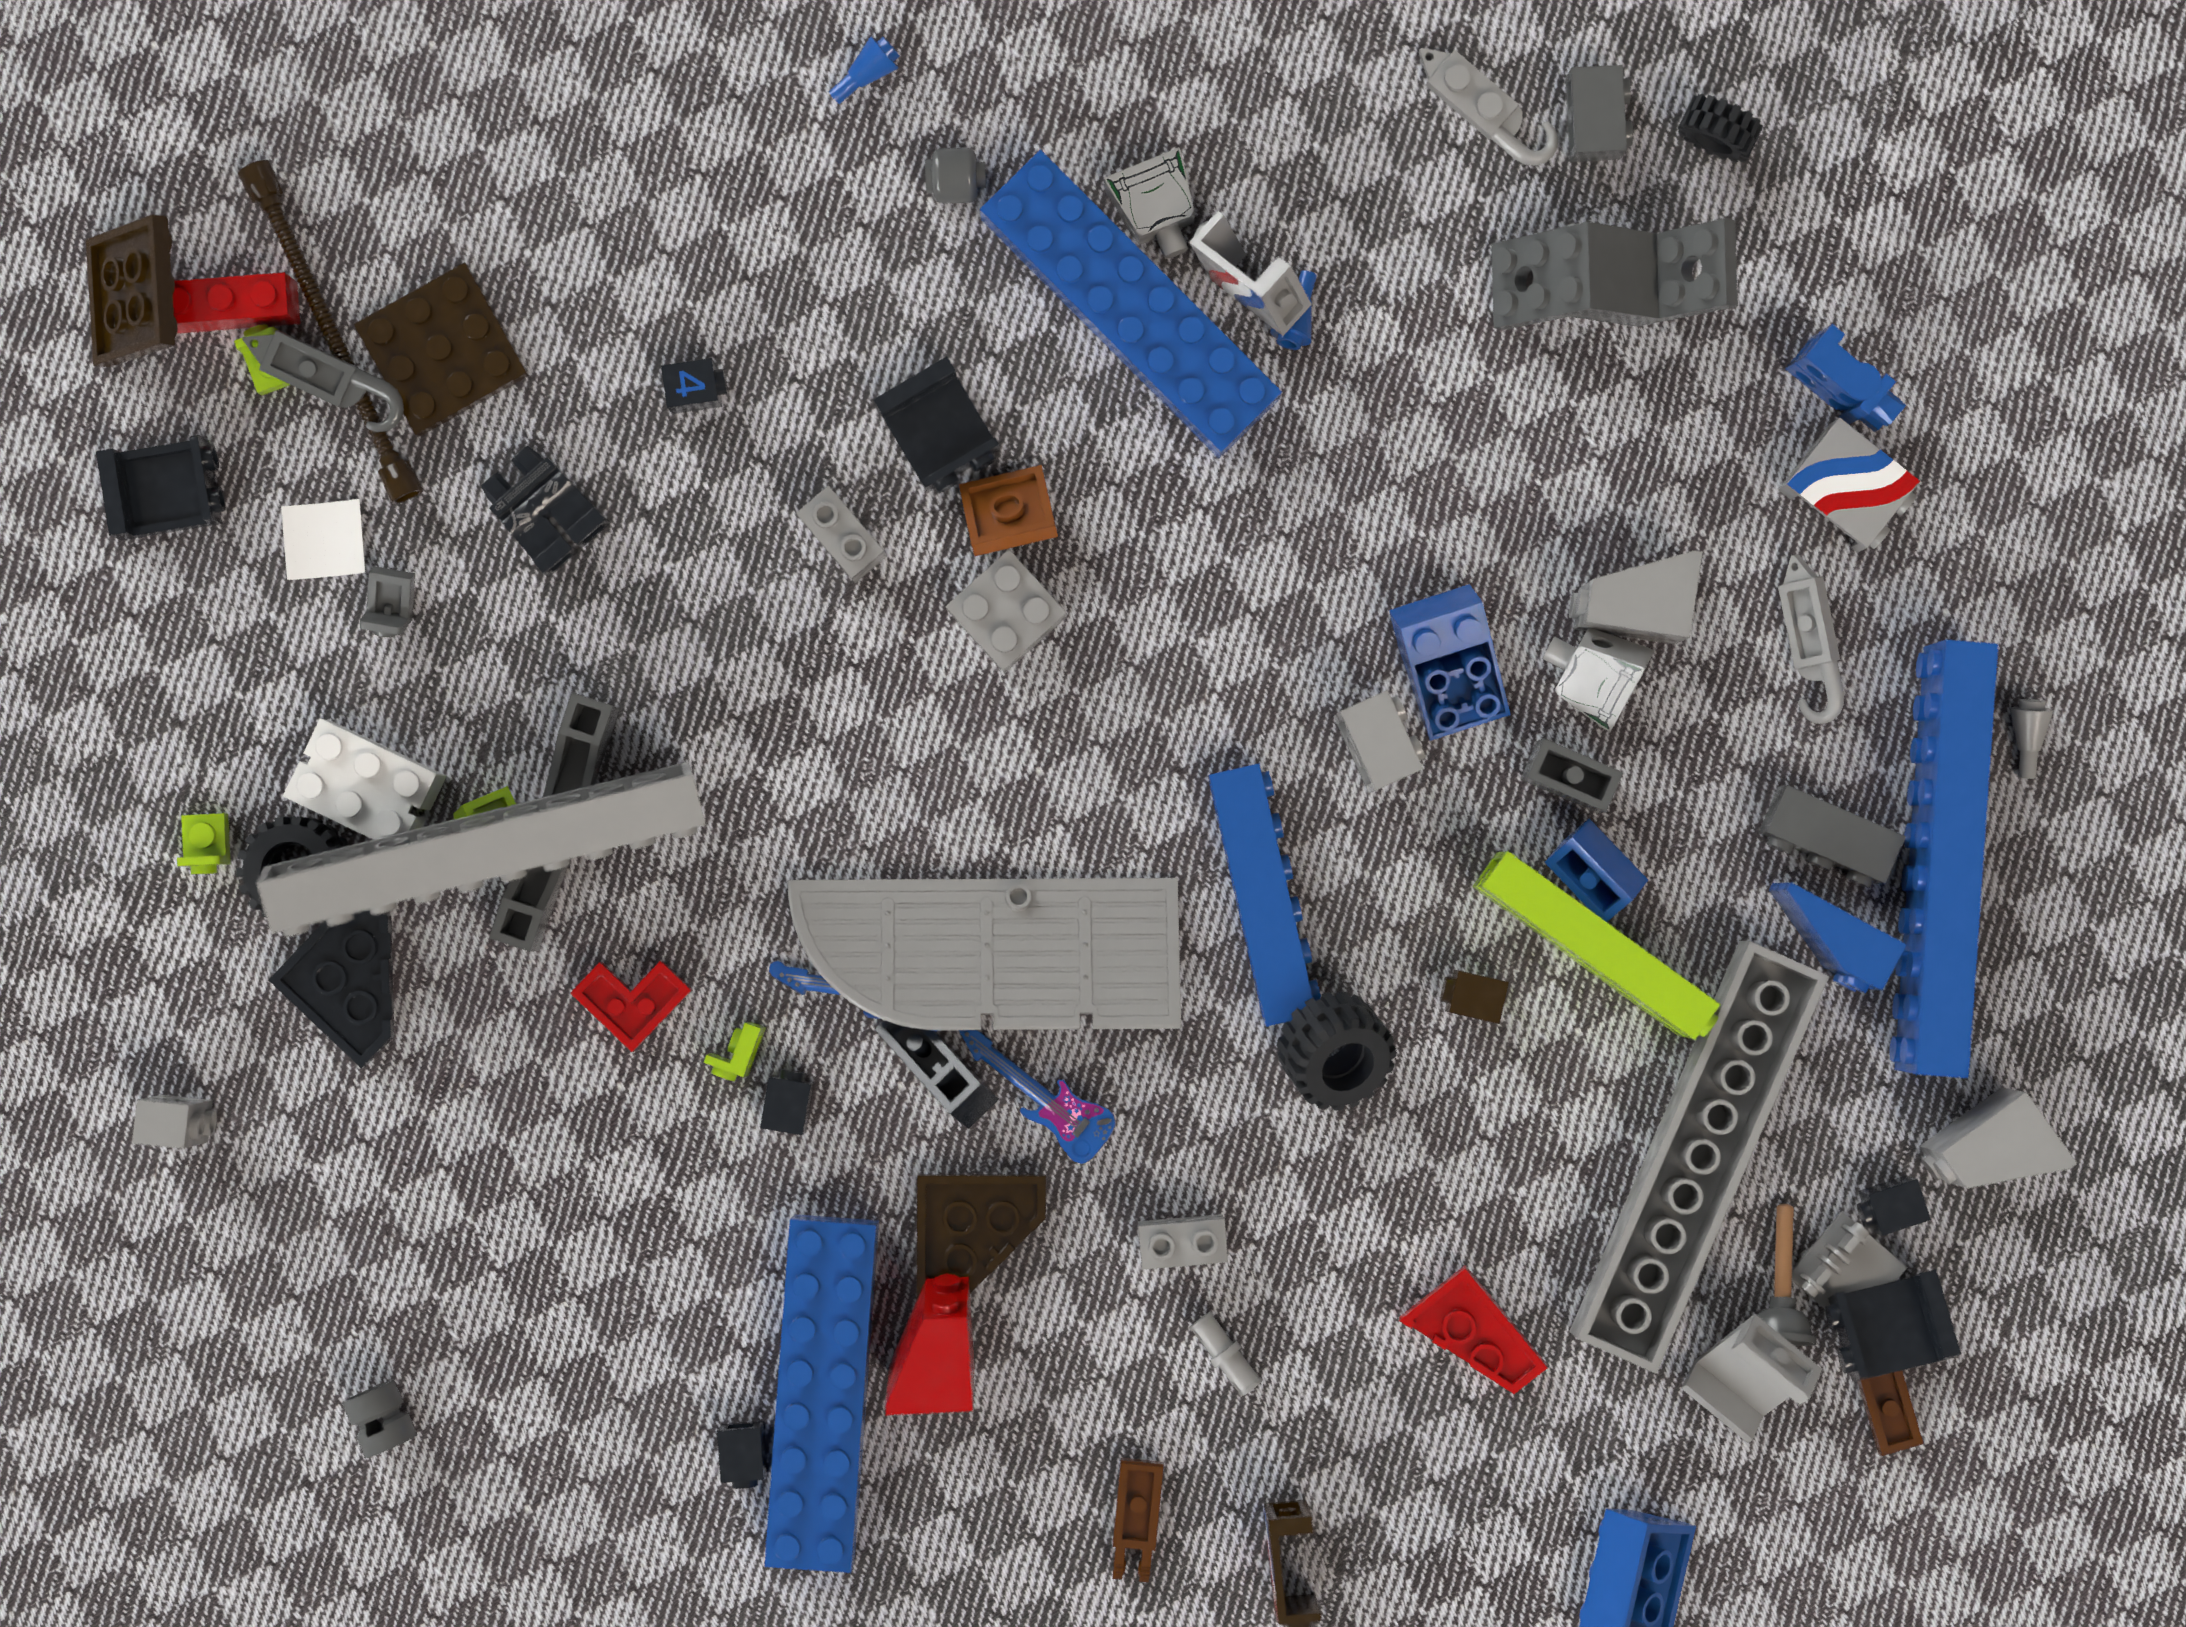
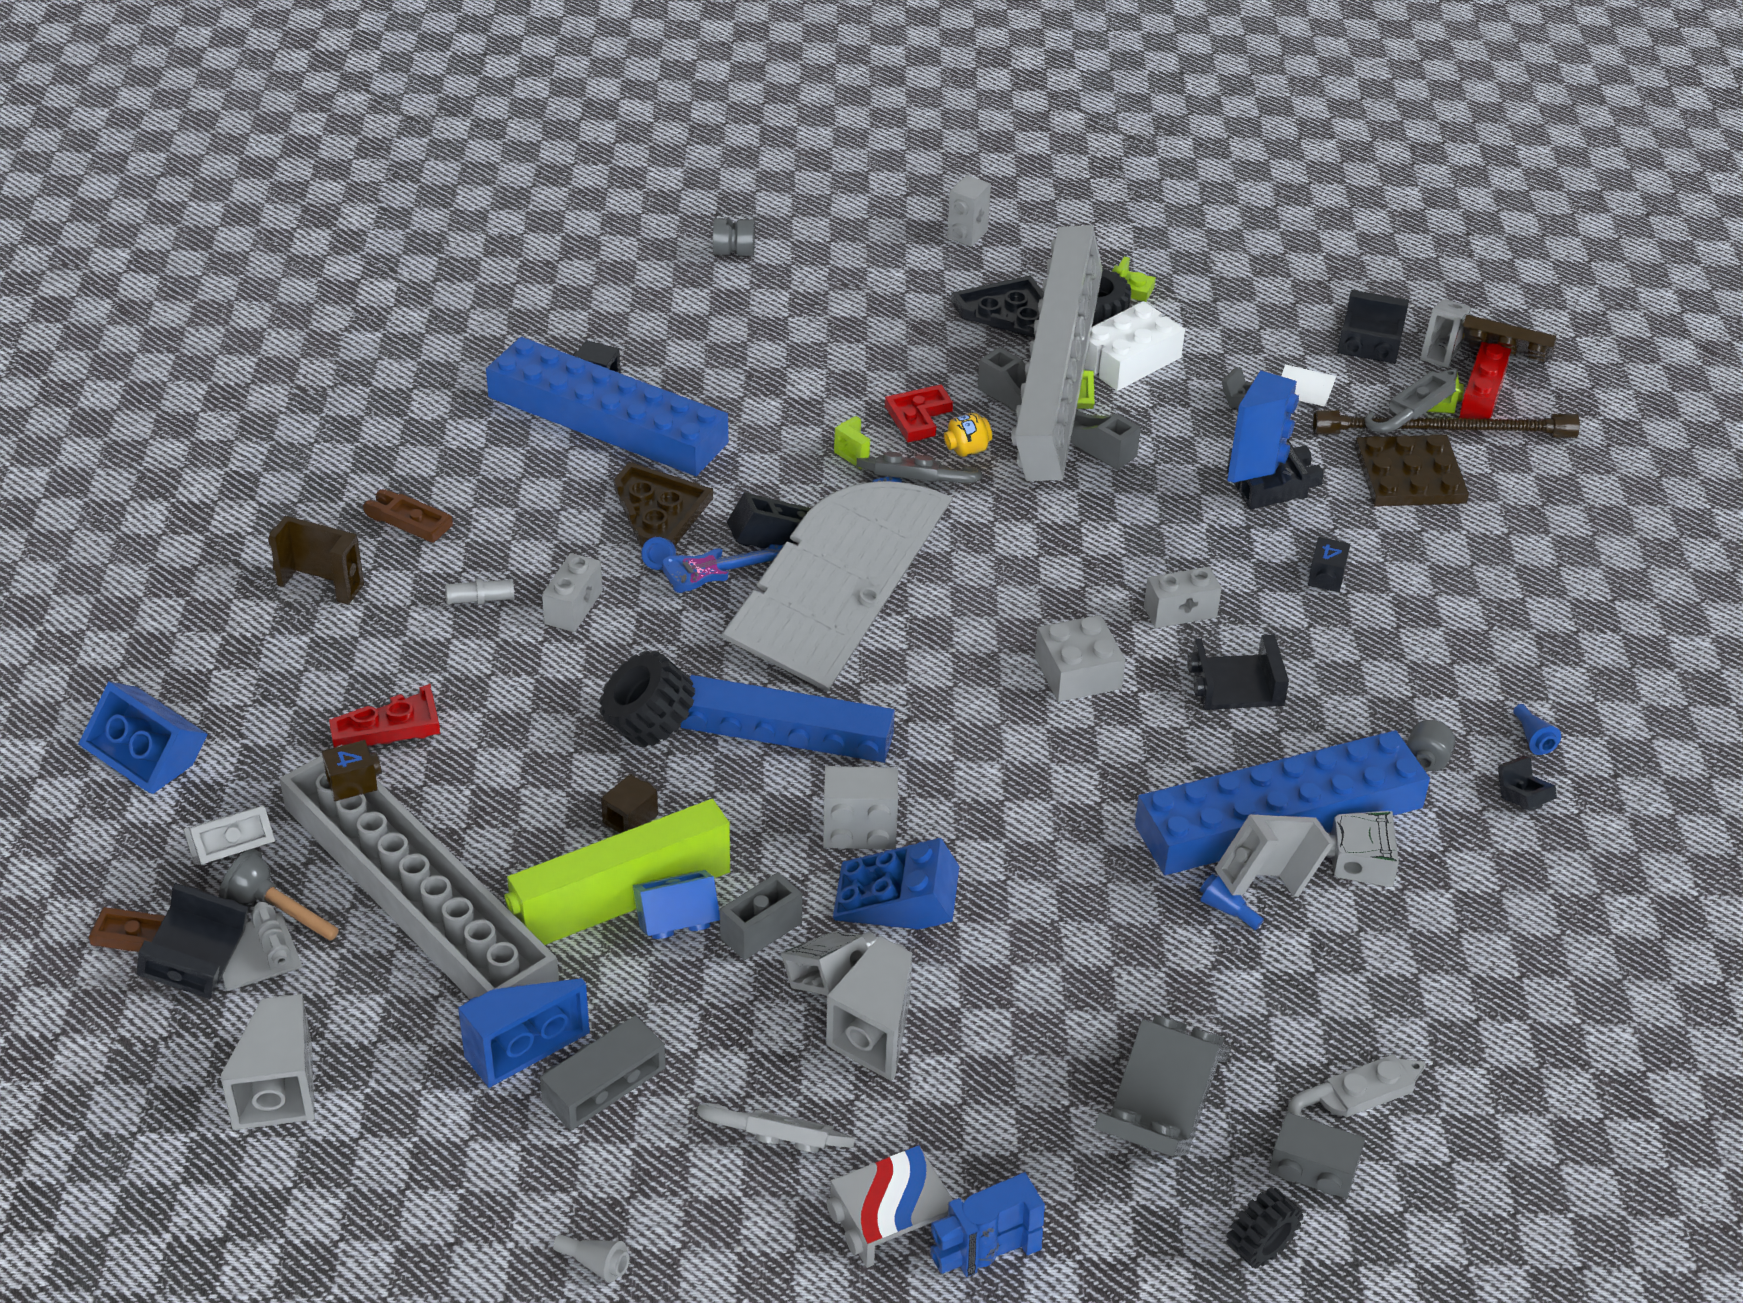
camera: 115 degrees right, 45 degrees down
(133, 384) = (1444, 326): none -> light grey torso
(546, 522) = (1263, 427): none -> blue slope
(658, 913) = (968, 434): none -> yellow head
(747, 950) = (917, 468): none -> dark grey plate
(787, 1102) = (802, 451): black brick -> none
(935, 1353) = (592, 445): red slope -> none
(974, 52) = (1523, 788): none -> black bracket
(1008, 510) = (1154, 679): dark orange plate -> none
(1061, 1181) = (655, 551): none -> blue tile
(1628, 1293) = (351, 770): none -> dark brown brick
(1892, 1205) = (280, 980): black brick -> none
(1944, 858) = (535, 1128): blue brick -> none

